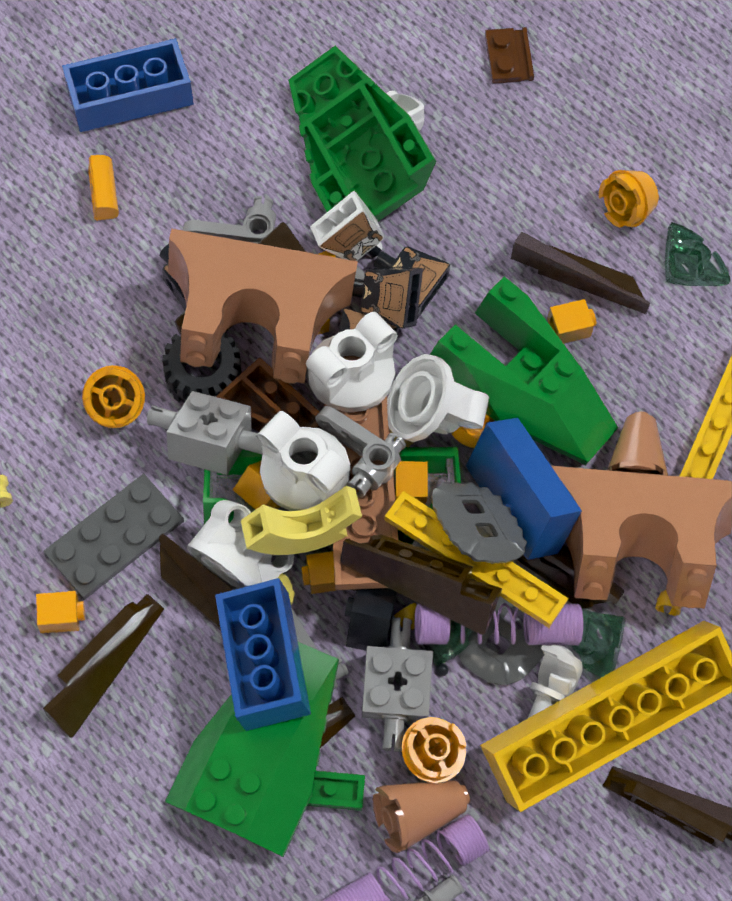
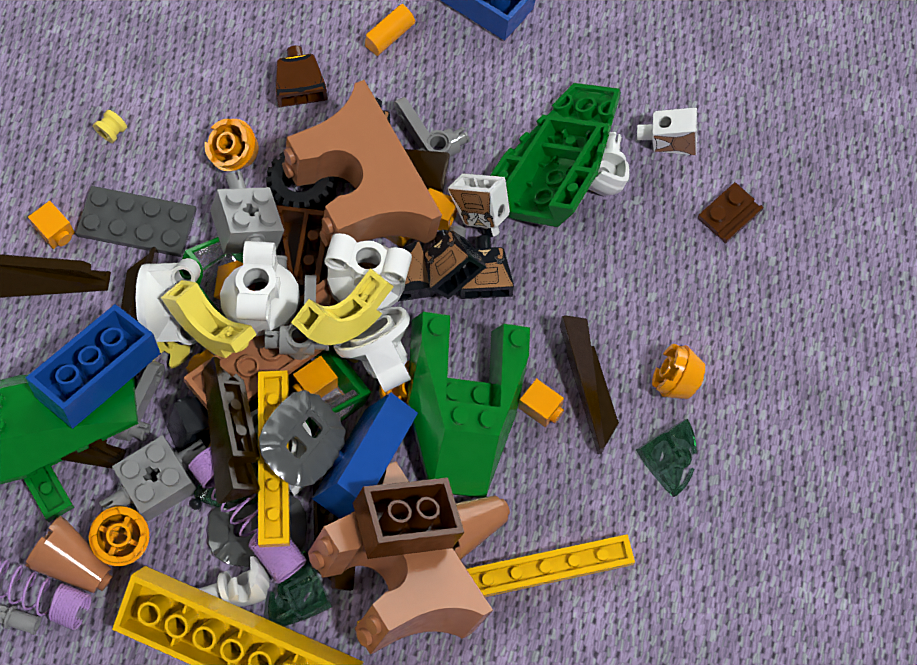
camera: 55 degrees right, 0 degrees up
(87, 295) = (299, 79): none -> reddish brown torso
(396, 406) = (348, 318): none -> light yellow arch
(403, 38) = (672, 131): none -> white torso
(624, 483) = (407, 517): none -> reddish brown brick

